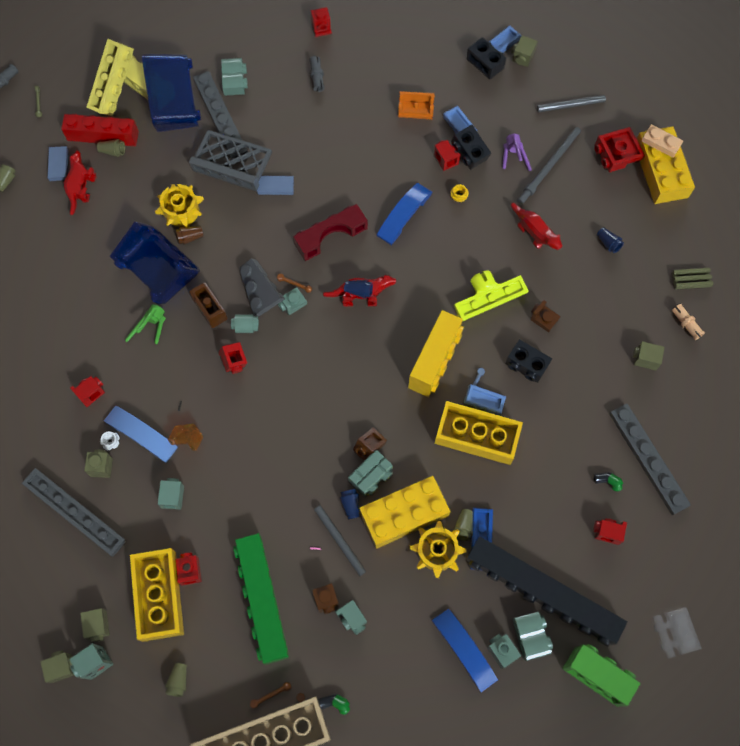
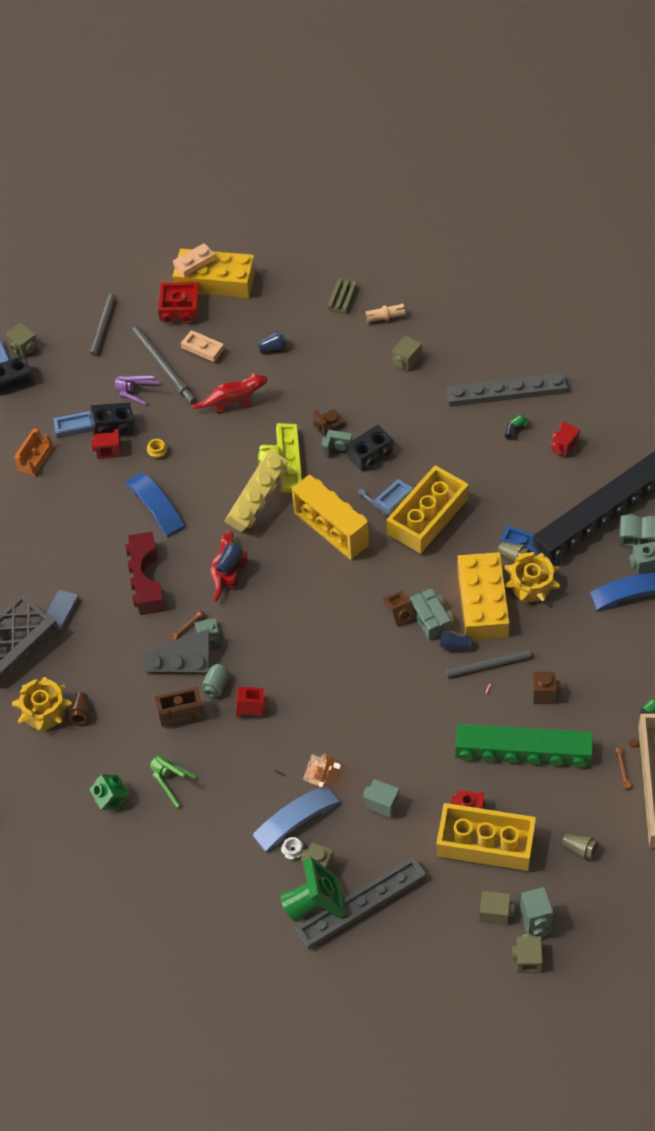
camera: 65 degrees left, 15 degrees down
(61, 473) = (320, 890): none -> green plant
(88, 390) = (225, 854): red brick -> none
(117, 283) = (109, 792): none -> green brick
(154, 261) = (102, 748): clear blue windscreen -> none
(352, 617) = (571, 671): sand green brick -> none
(438, 283) = (255, 491): none -> light yellow brick
(523, 328) = (335, 440): none -> sand green bracket
(581, 186) = (202, 346): none -> light nougat plate

